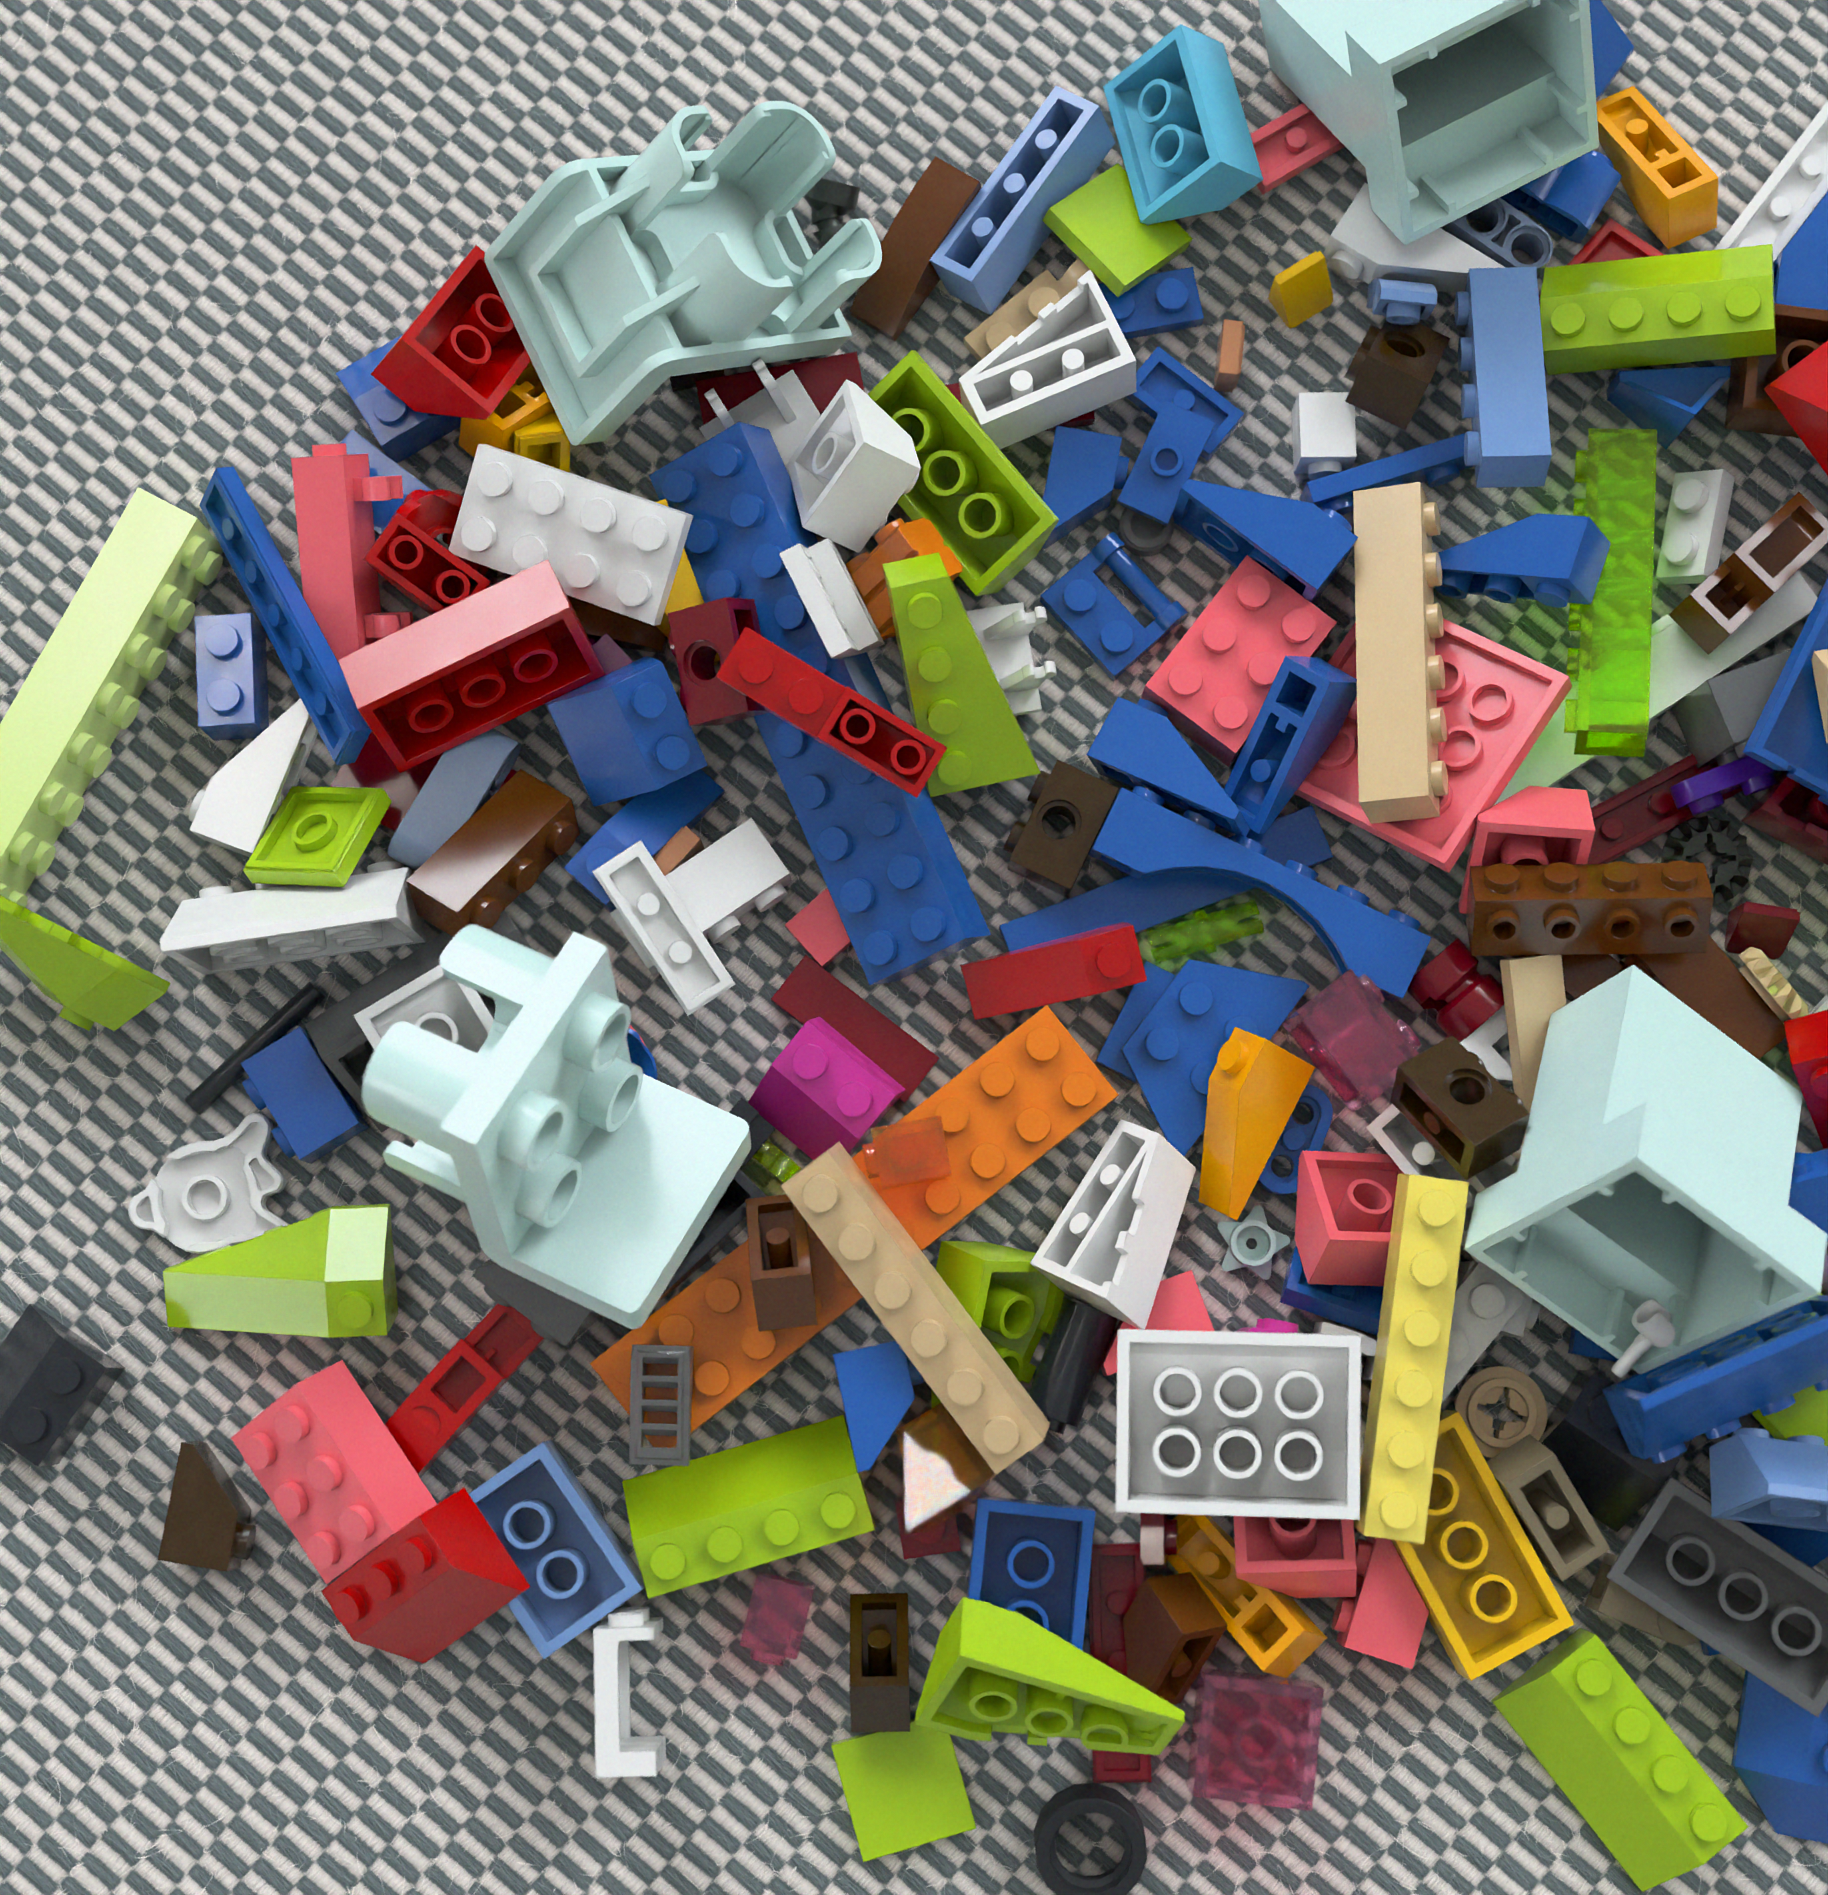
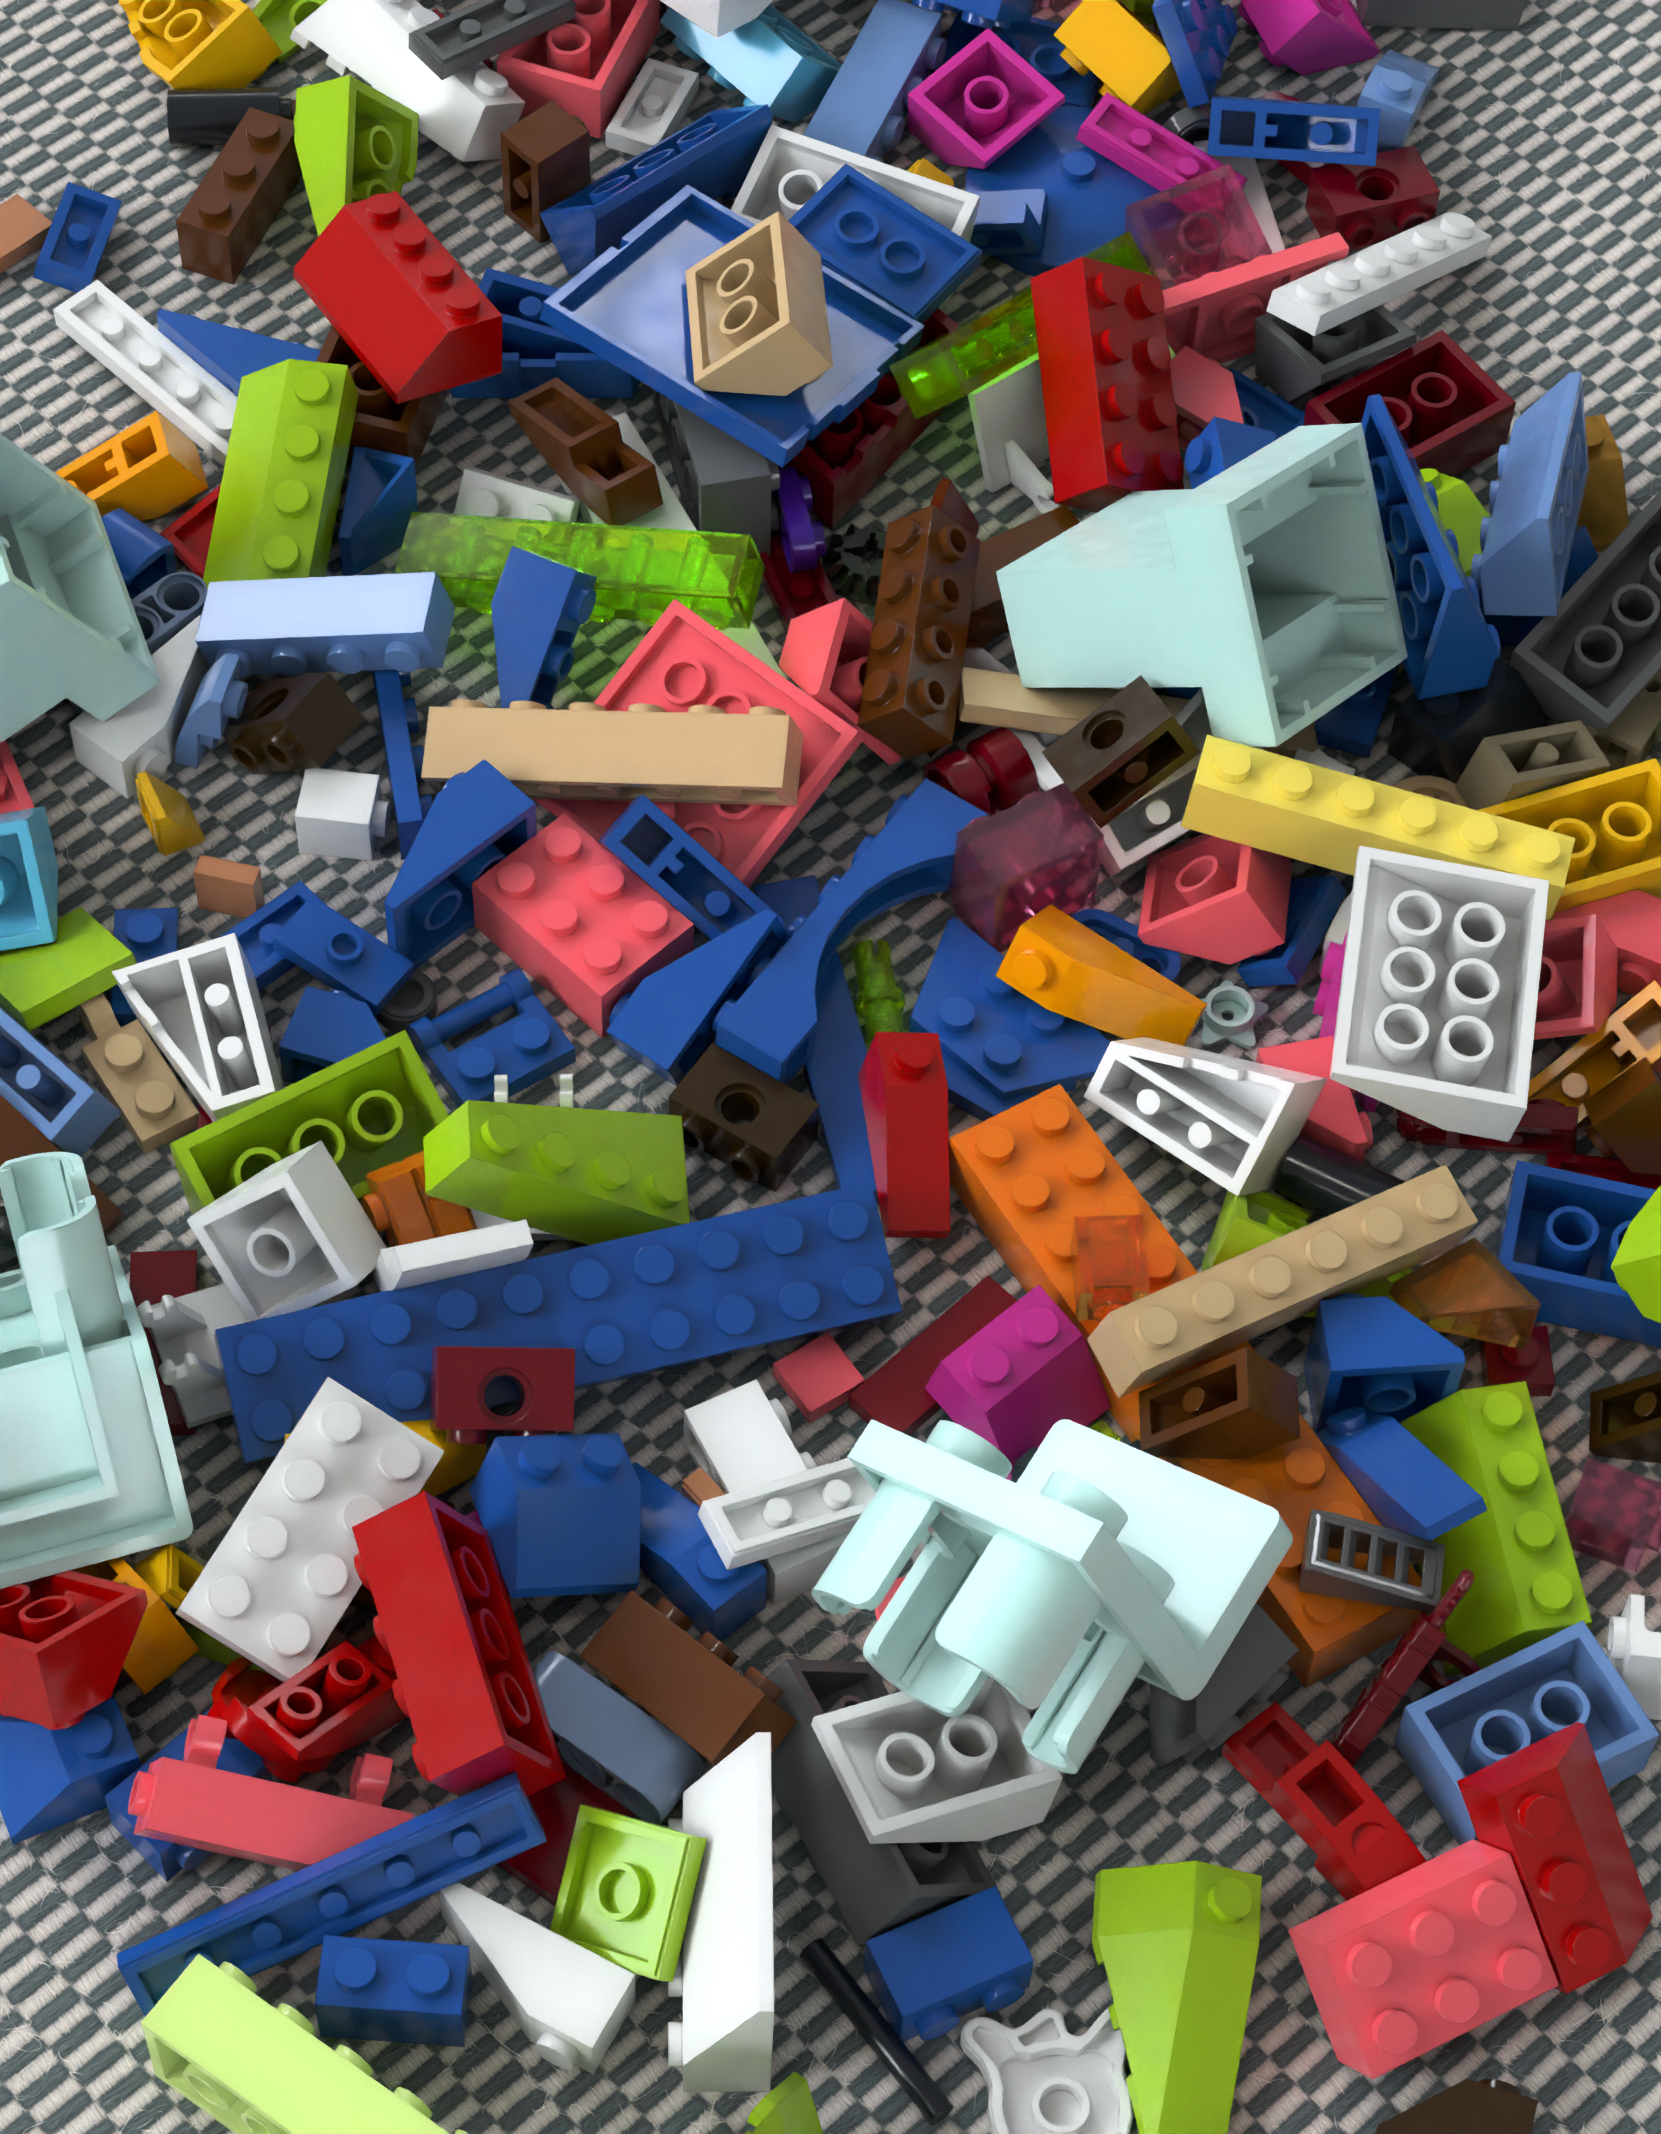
camera: 85 degrees left, 25 degrees down
(581, 1437) = (1409, 1661): none -> dark red piece
(754, 1420) = (1398, 1474): none -> blue slope
(831, 712) = (598, 1259): red slope -> none
(1655, 1329) = (1370, 615): white hand -> none
(1772, 985) = (1013, 510): tan gear -> none

